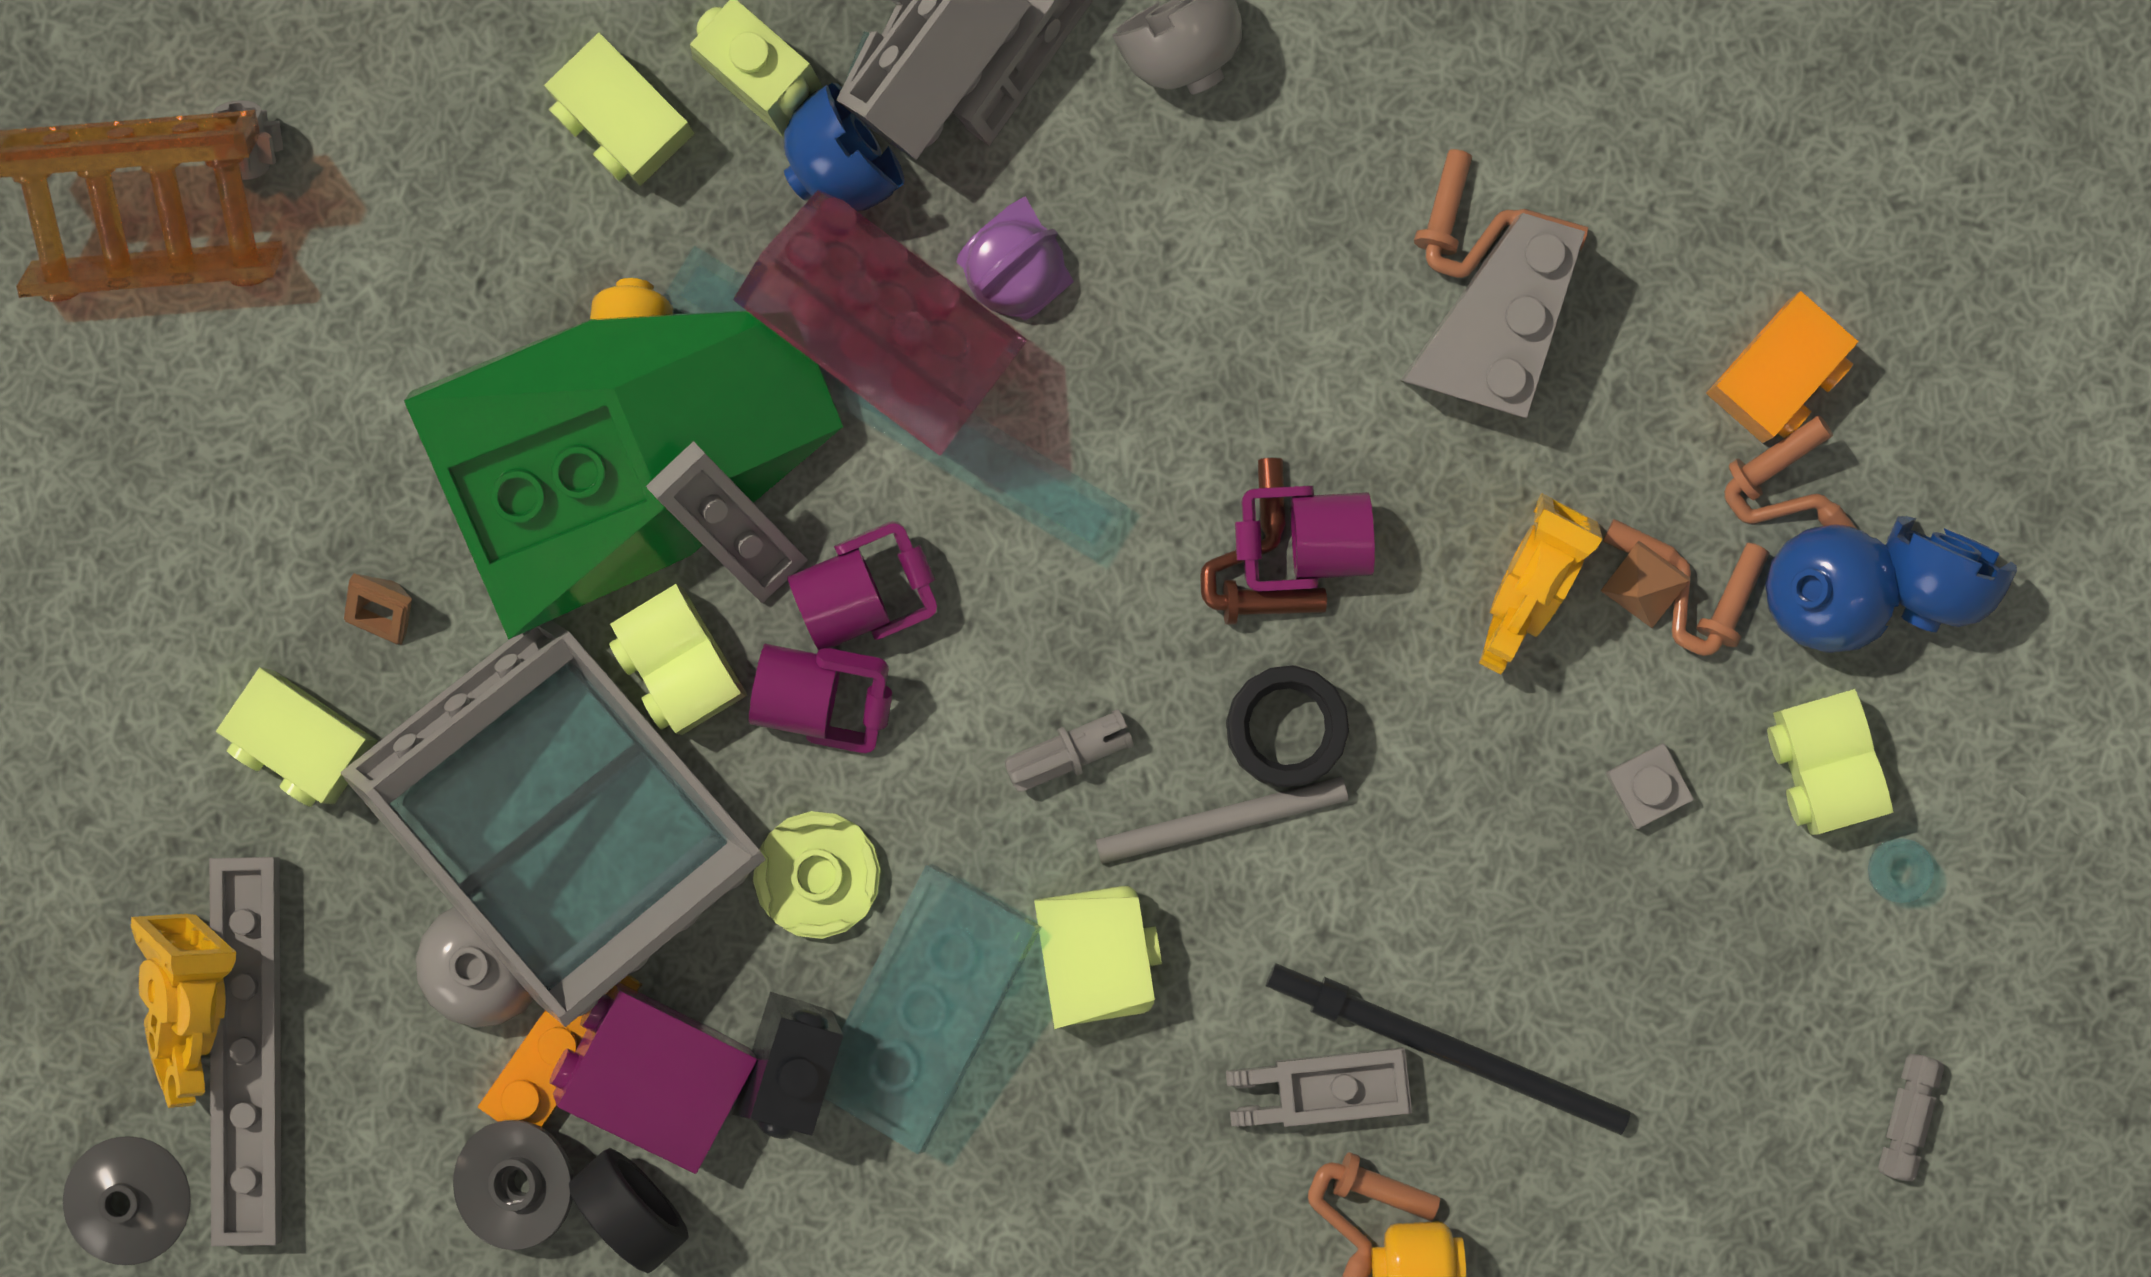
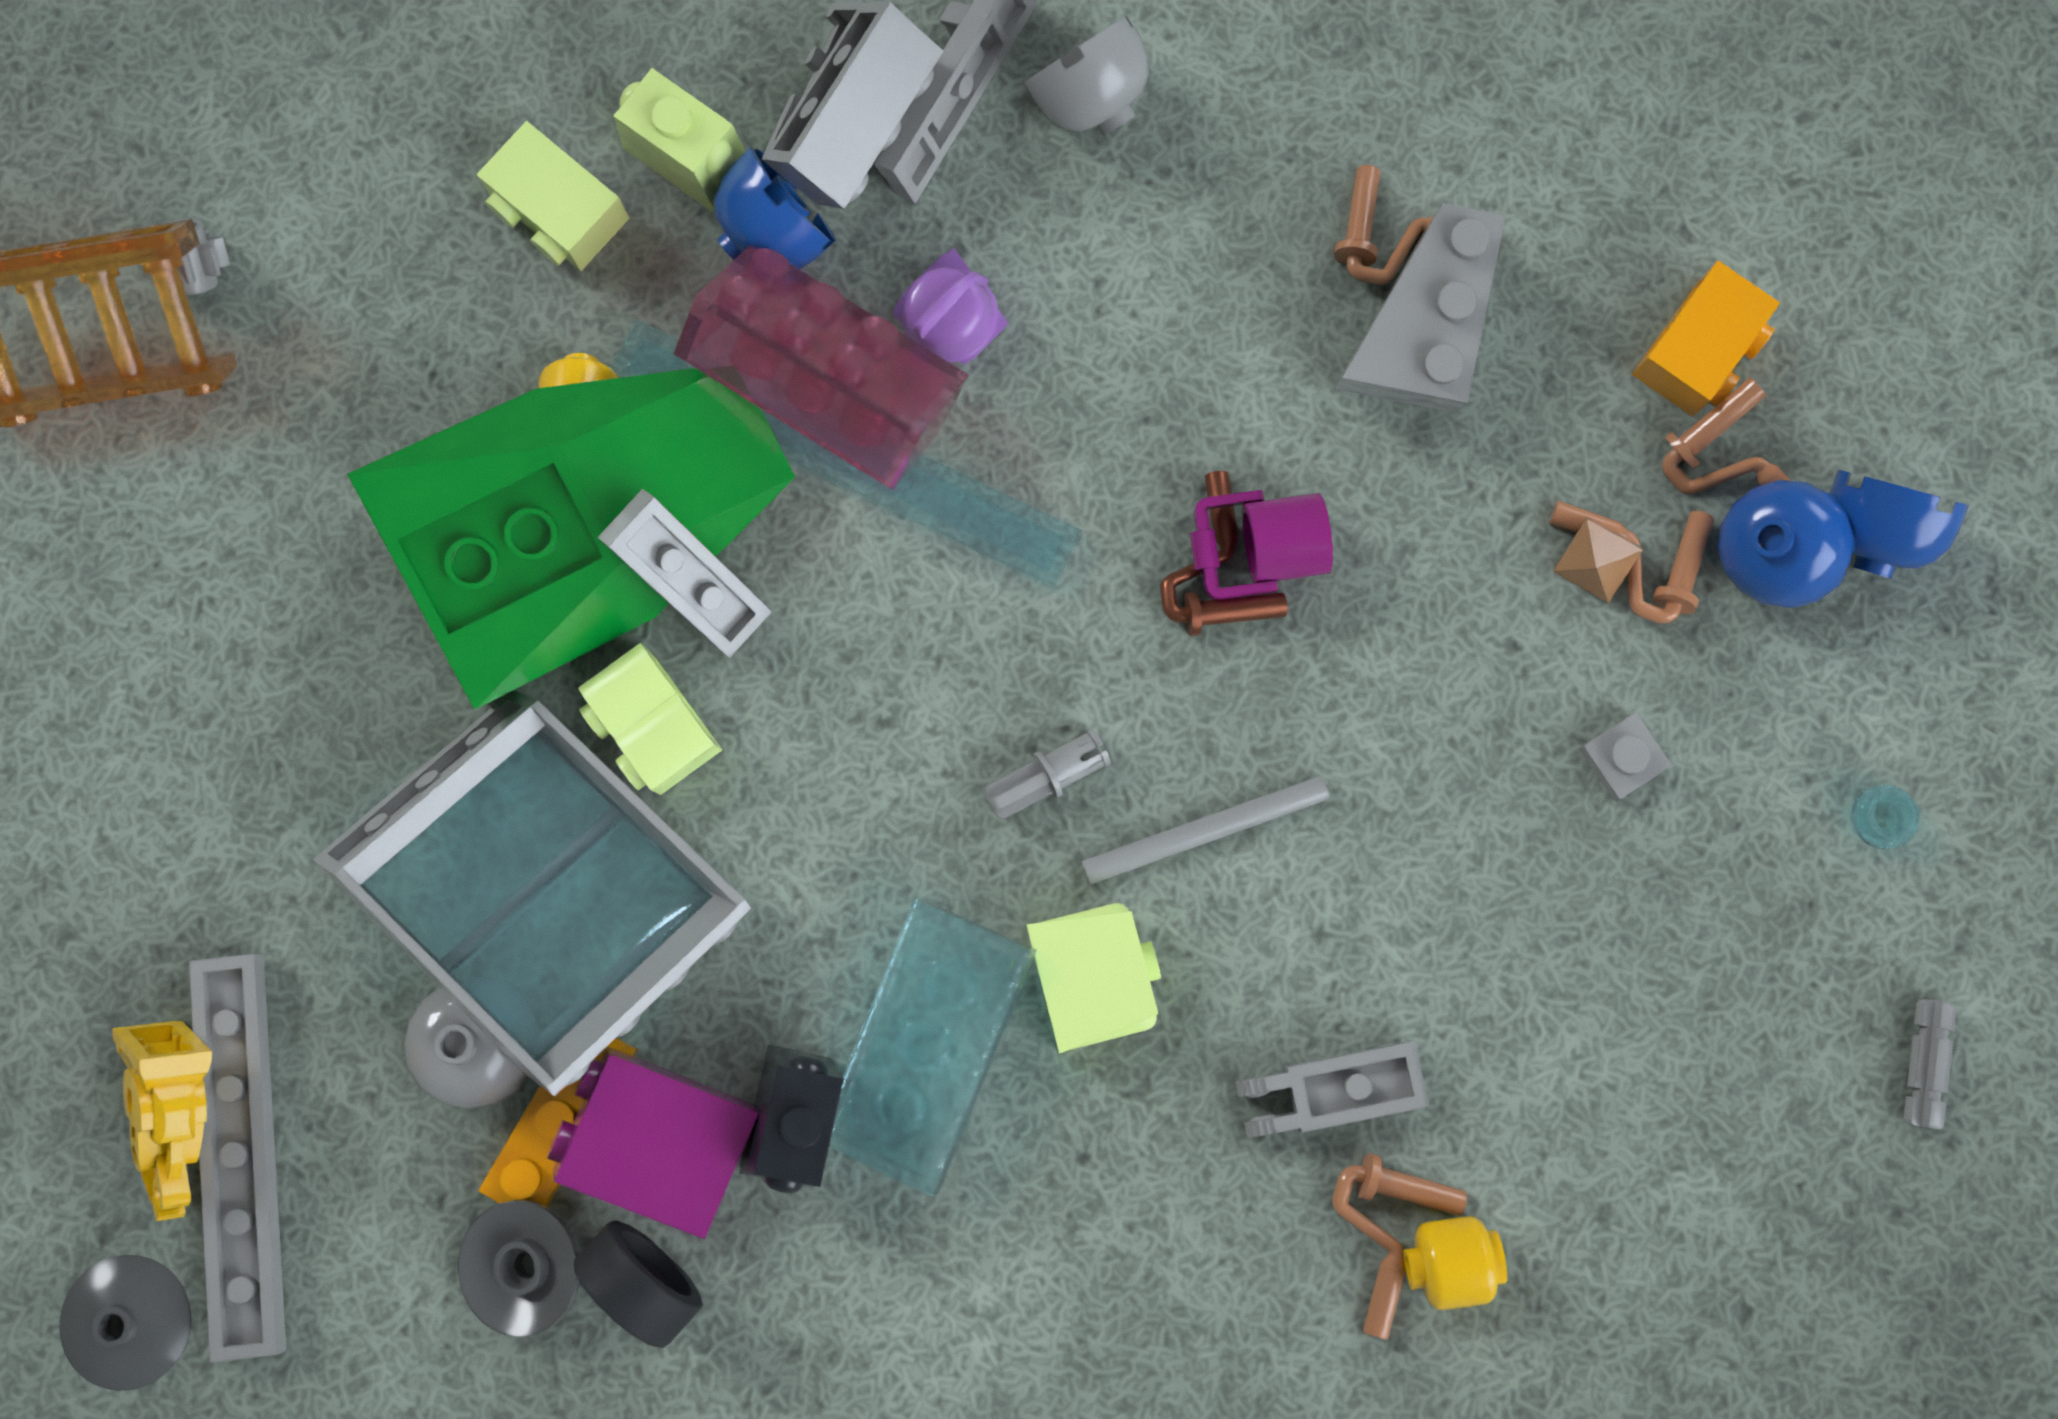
camera: 10 degrees left, 5 degrees down
(293, 736) = (267, 830): yellowish green brick -> none
(385, 592) = (332, 681): medium nougat slope -> none
(799, 690) = (773, 738): magenta piece -> none
(841, 870) = (828, 930): yellowish green tile -> none
(842, 598) = (807, 642): magenta piece -> none
(1332, 1001) = (1334, 1000): black bar -> none
(1334, 720) = (1287, 689): black tyre -> none
(1538, 578) = (1495, 559): yellow piece -> none
(1830, 763) = (1804, 715): yellowish green brick -> none

